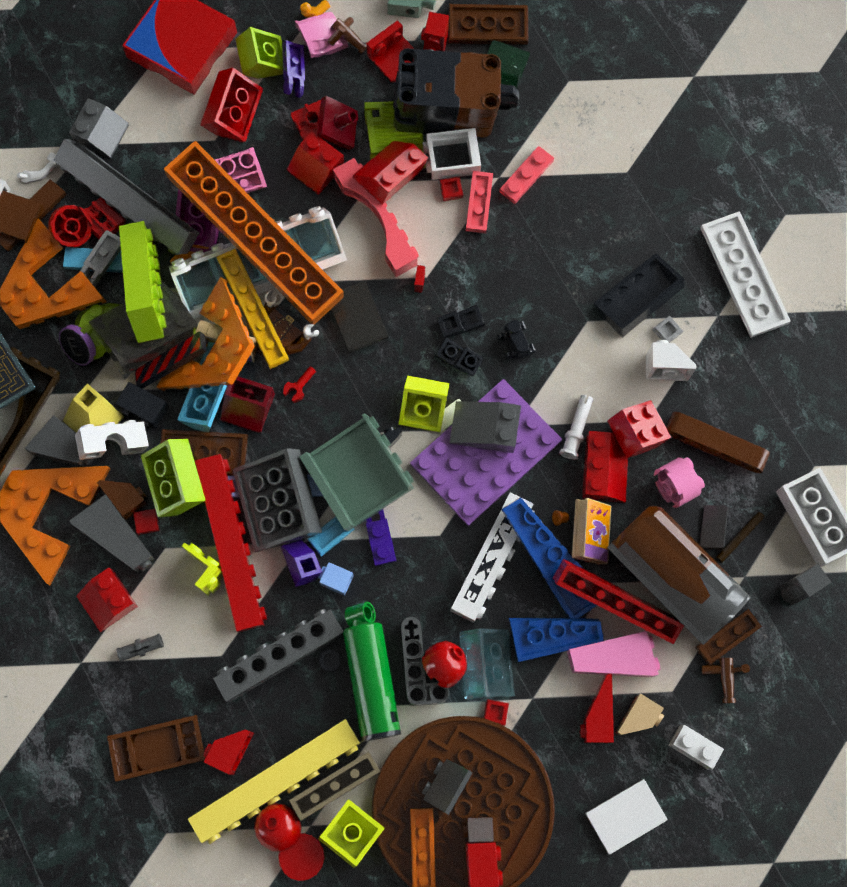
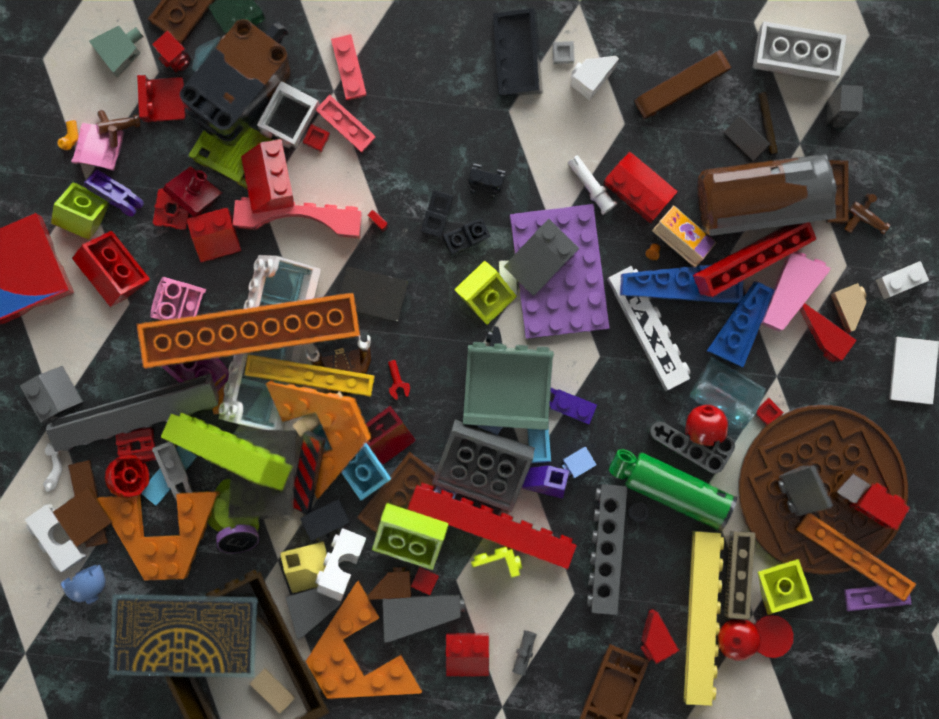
camera: 55 degrees left, 10 degrees up
(638, 429) = (631, 138): red brick -> none
(678, 482) = (694, 139): bright pink brick -> none

